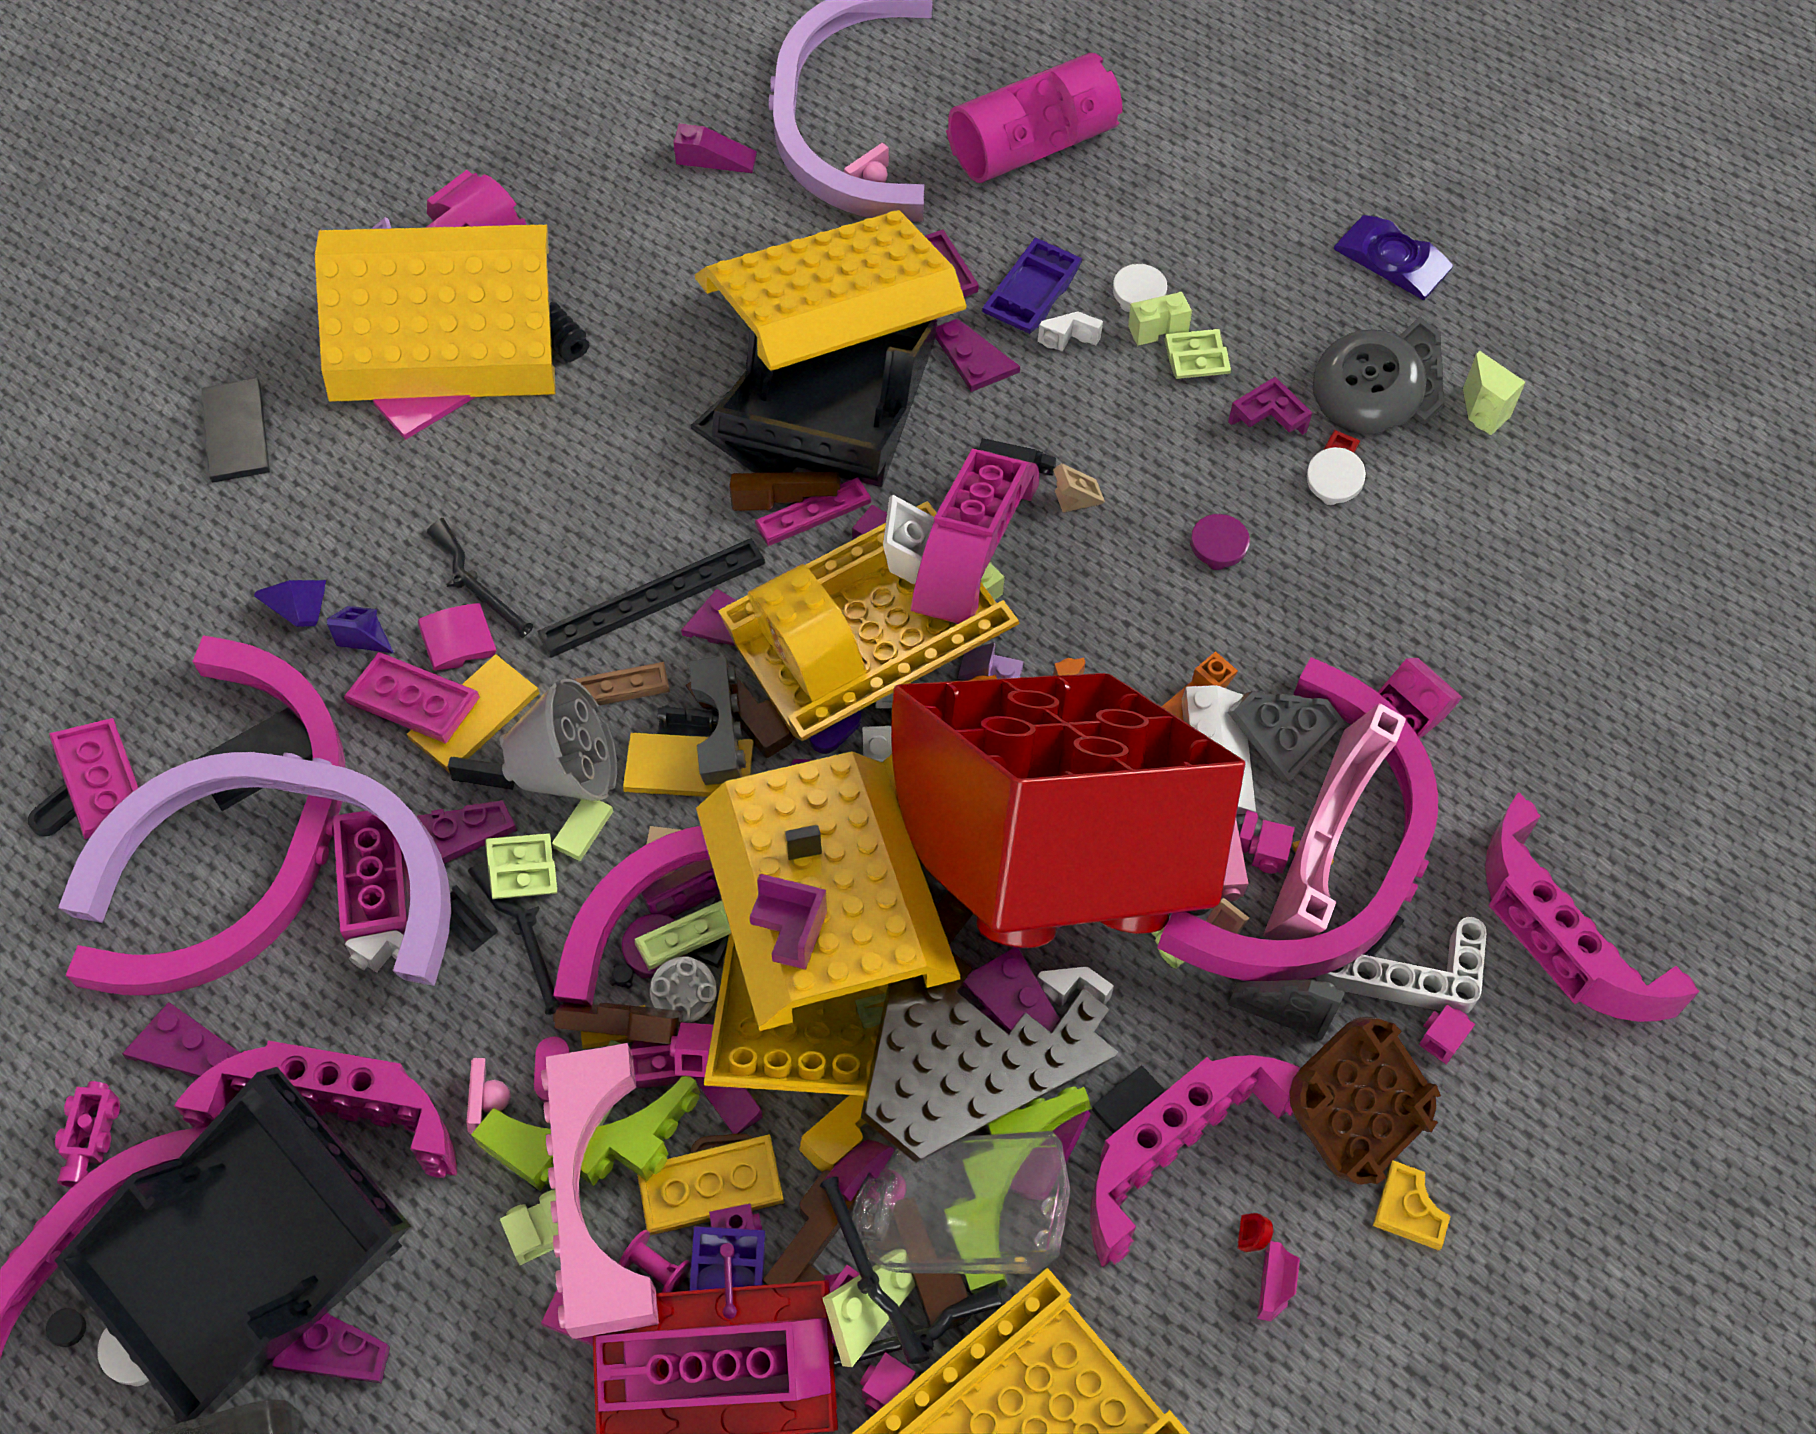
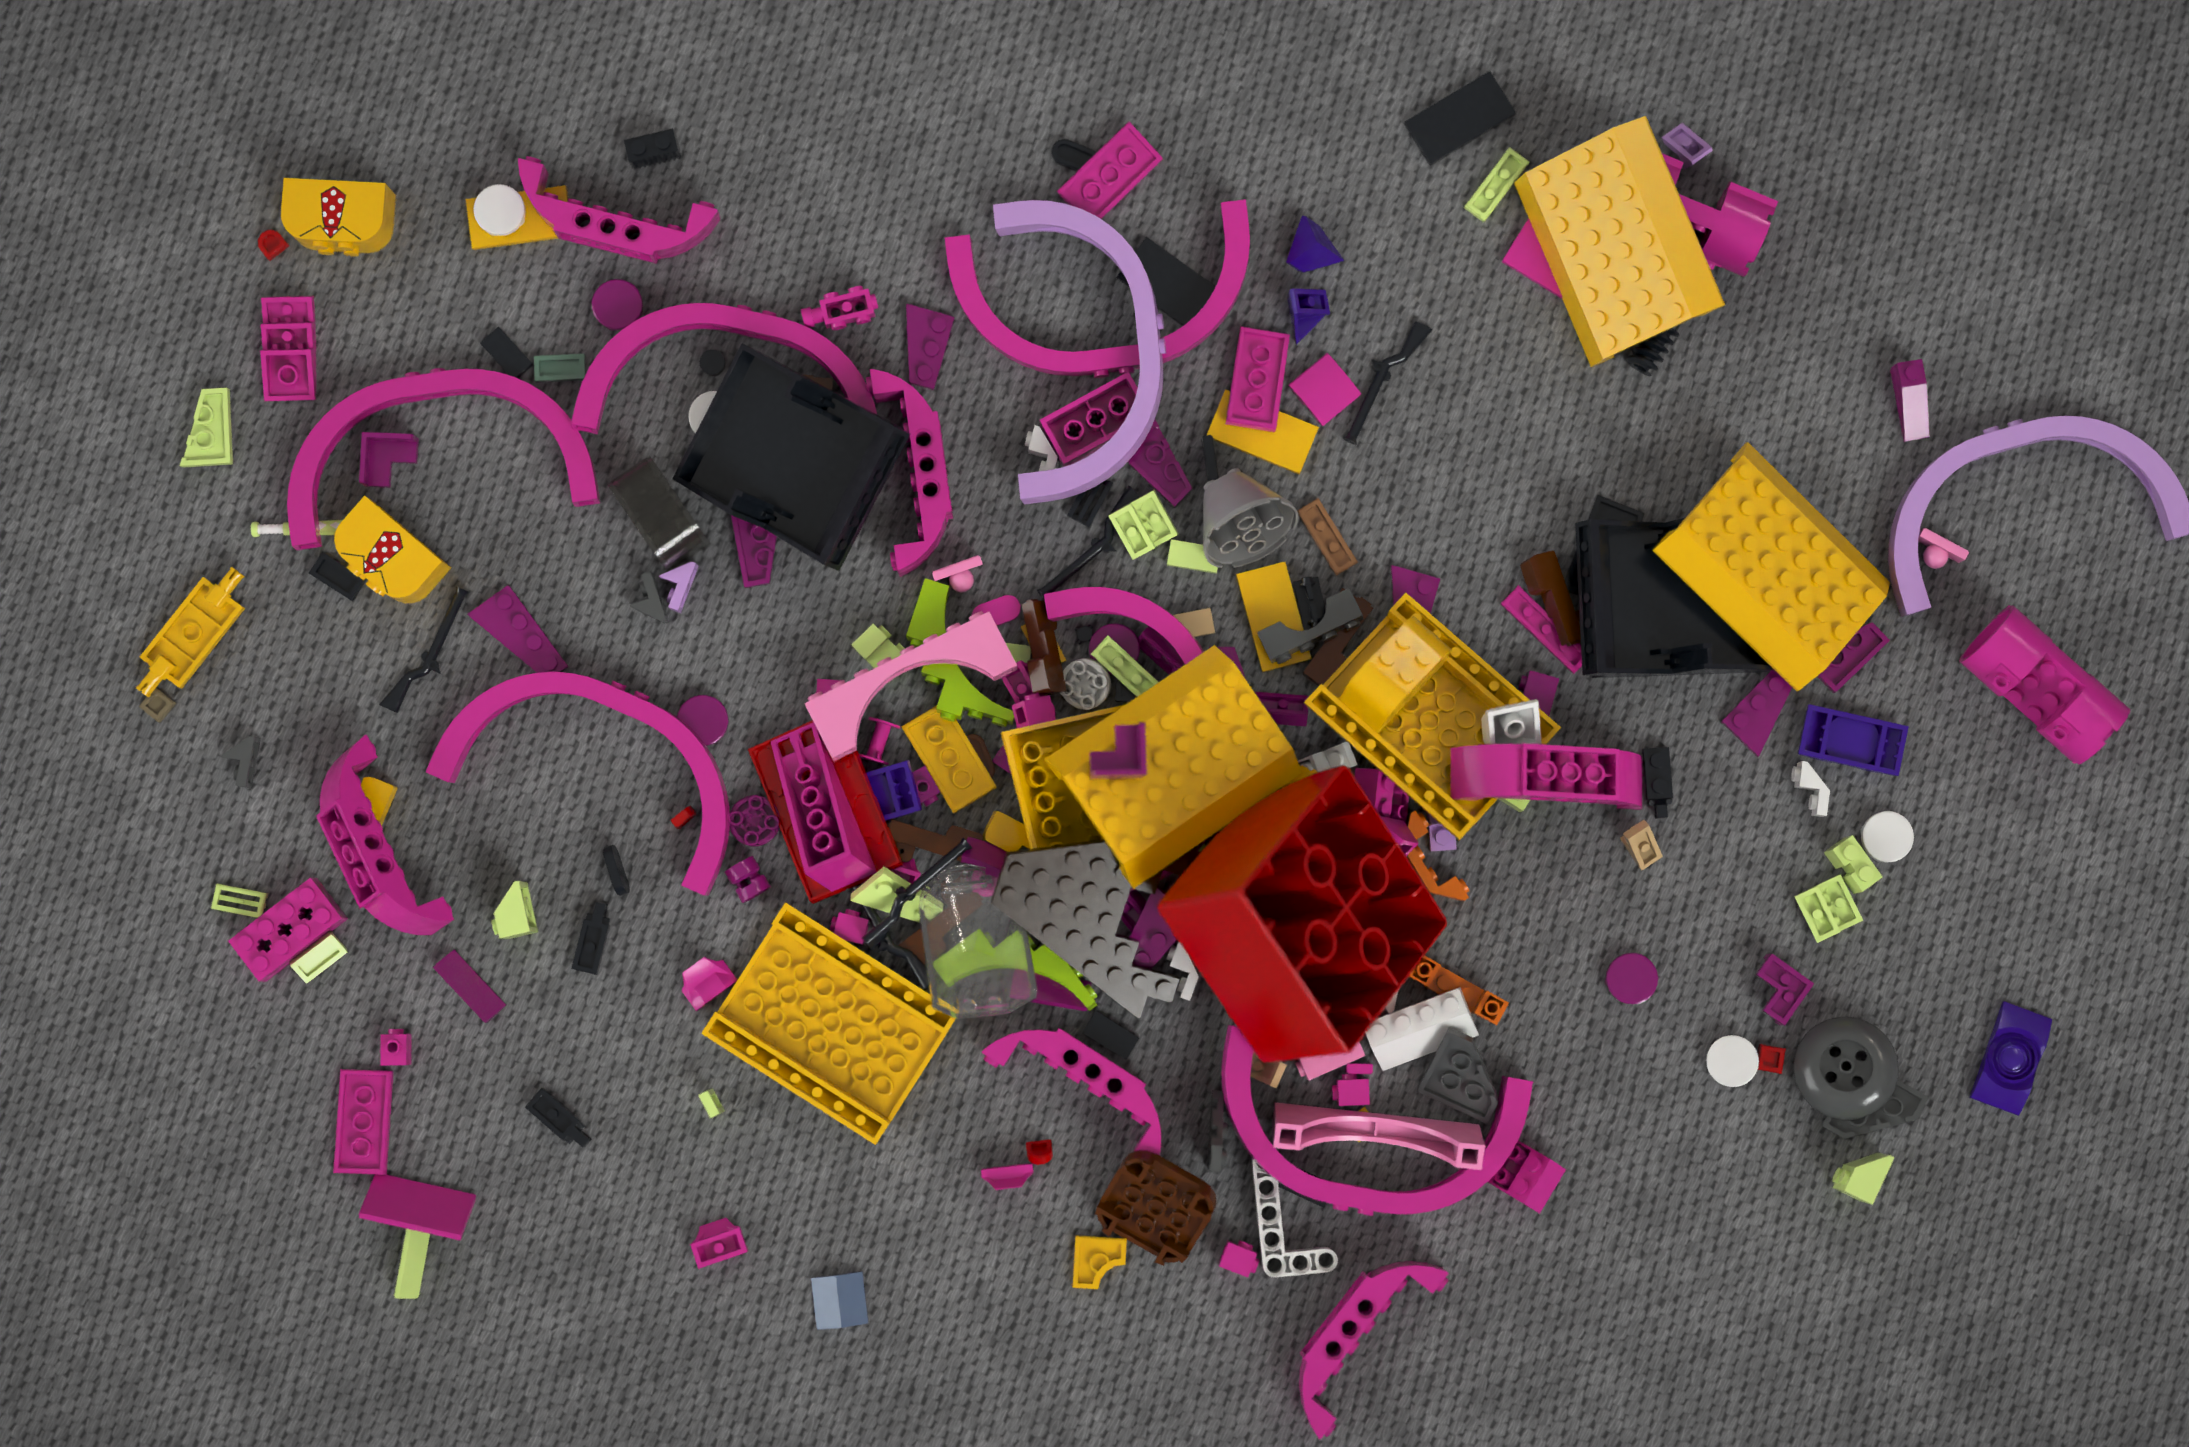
camera: 70 degrees right, 25 degrees up
(323, 419) = (1496, 184): none -> yellowish green tile
(650, 597) = (1416, 529): black tile -> none
(727, 1252) = (897, 789): magenta hinge -> none
(803, 842) = (1190, 741): tile -> none

